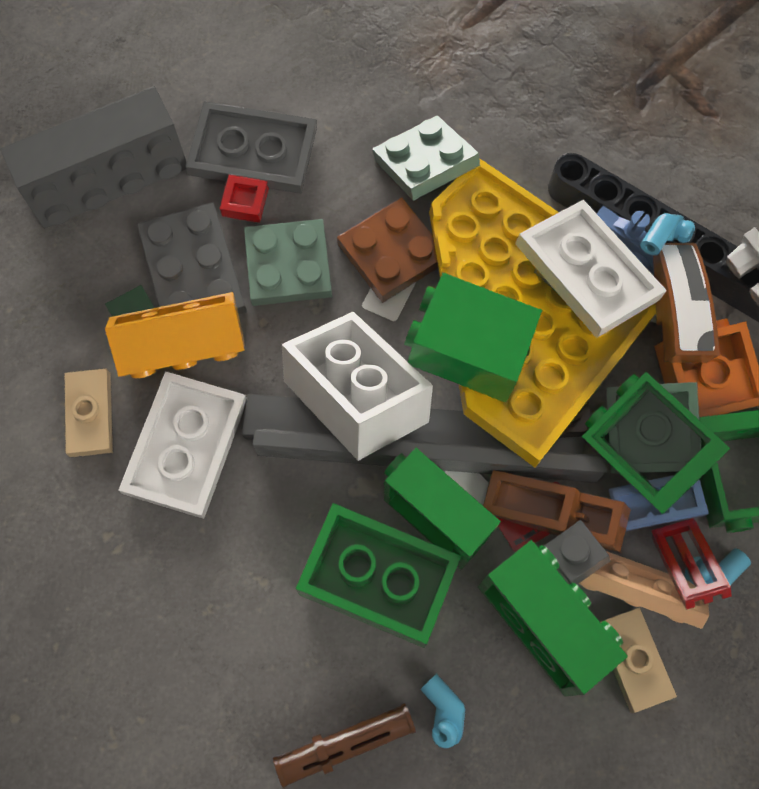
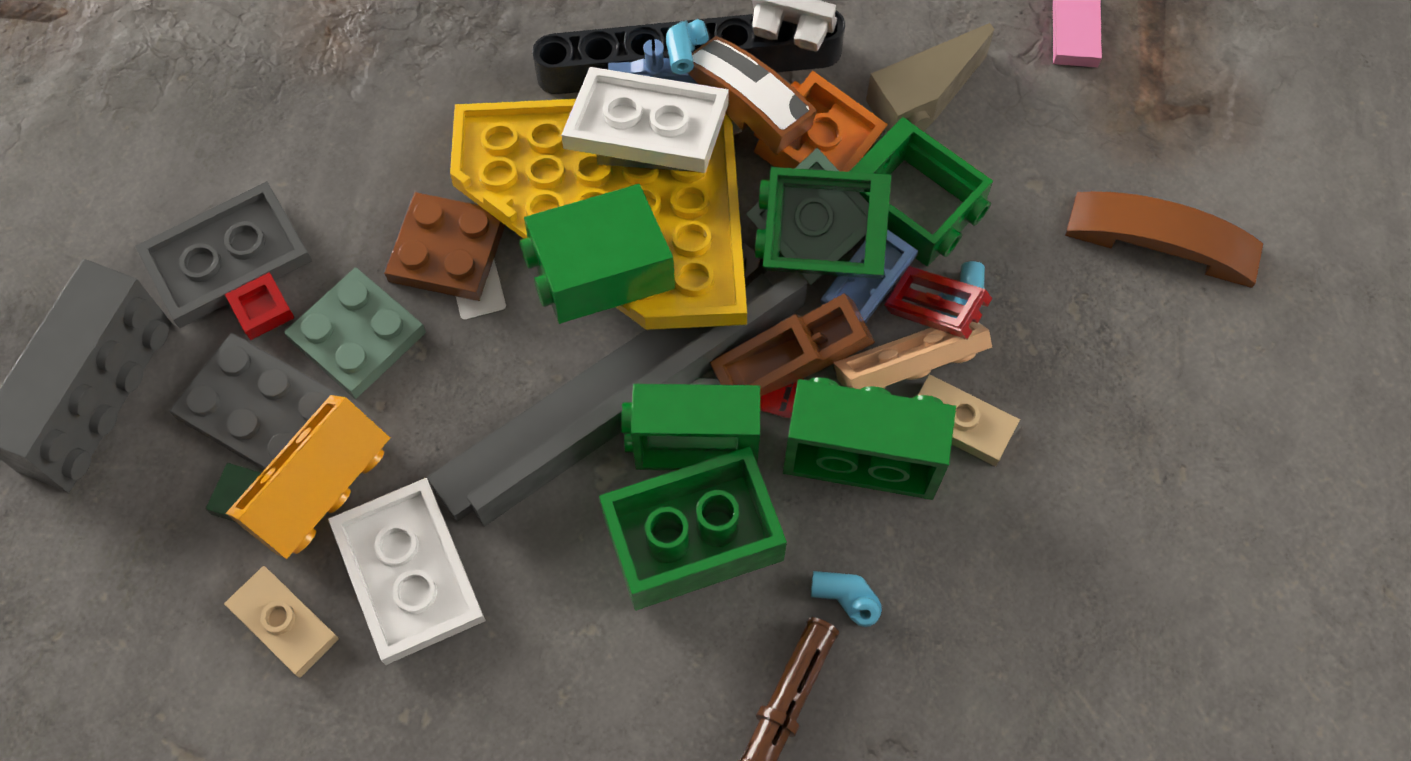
camera: 40 degrees left, 5 degrees down
(356, 384) = (526, 380): white brick -> none
(426, 157) = (405, 139): plate -> none
(578, 553) = (844, 361): dark grey plate -> none

